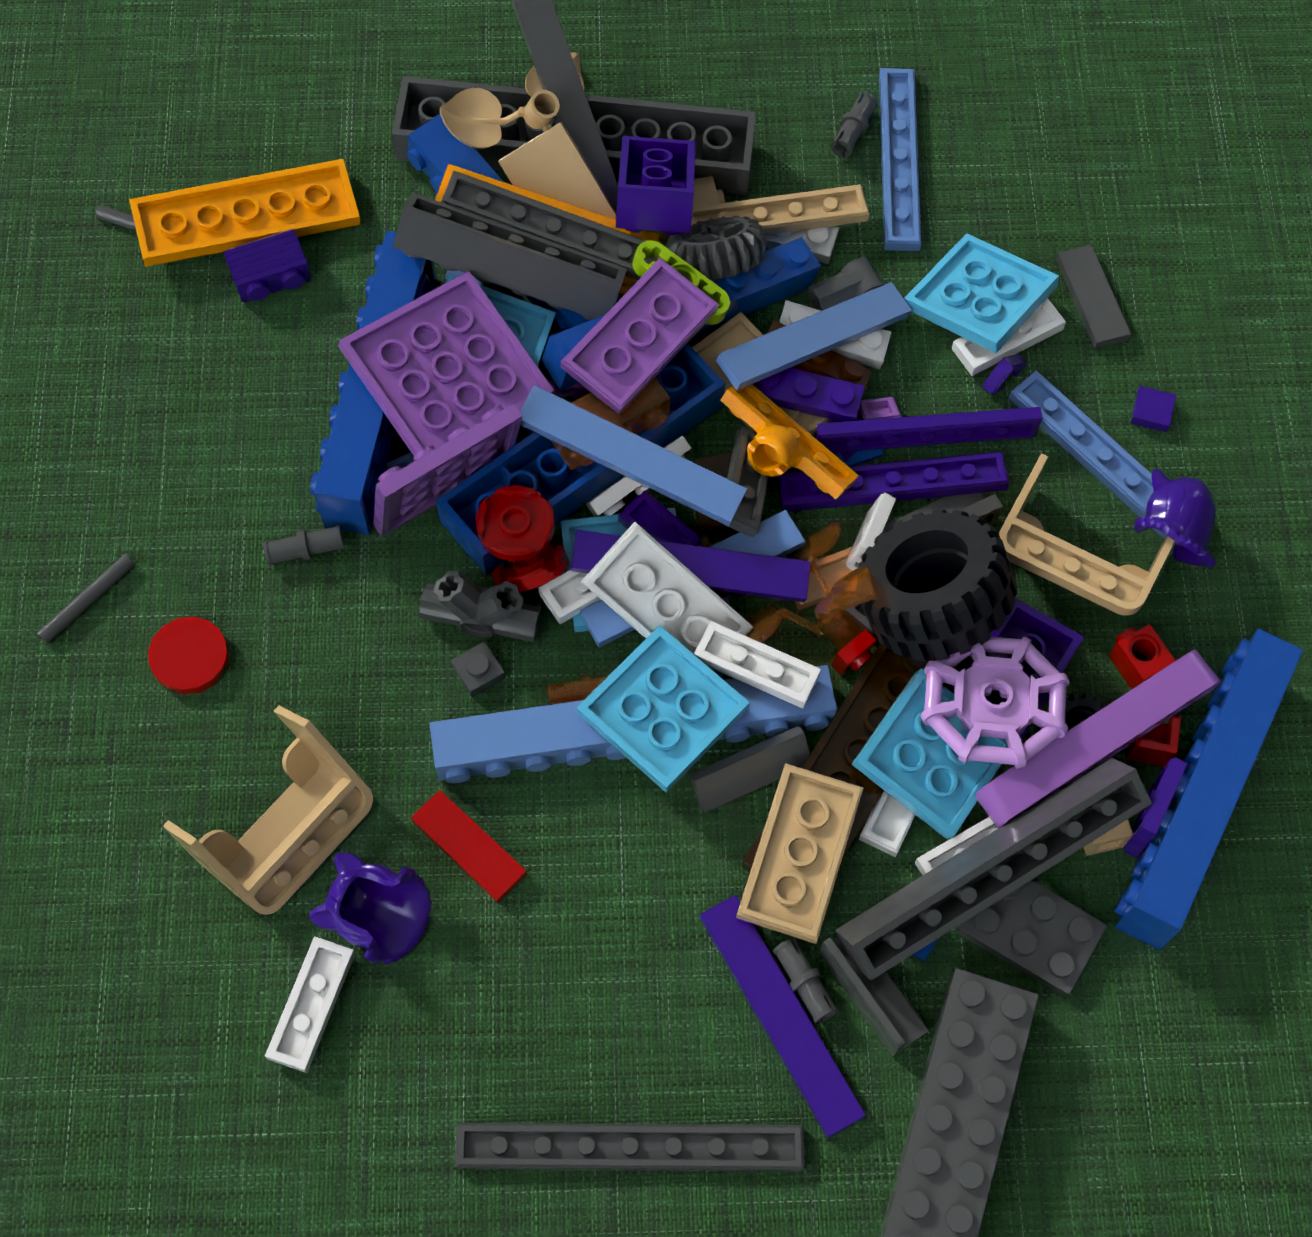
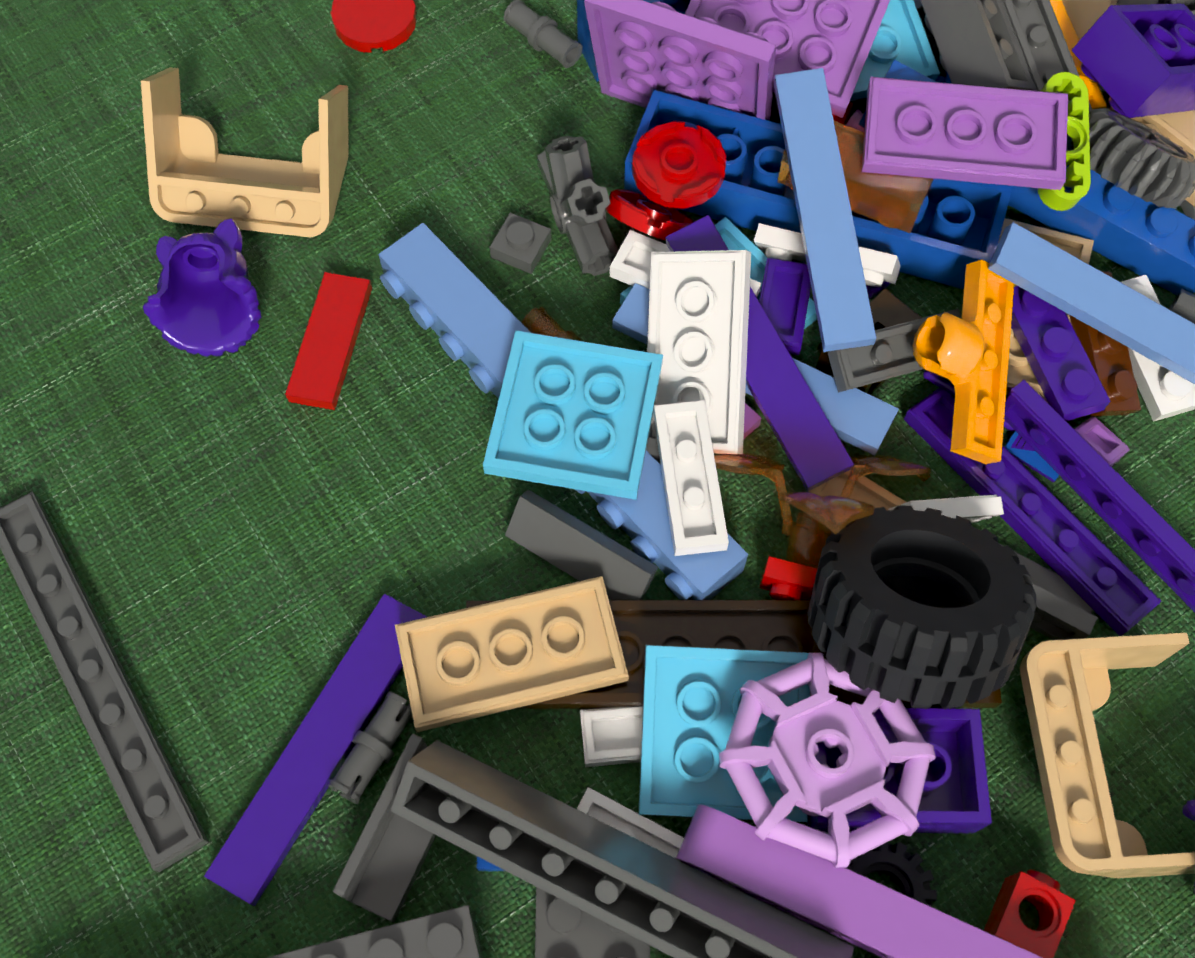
camera: 60 degrees right, 0 degrees up
(310, 1004) = (82, 298): white plate -> none

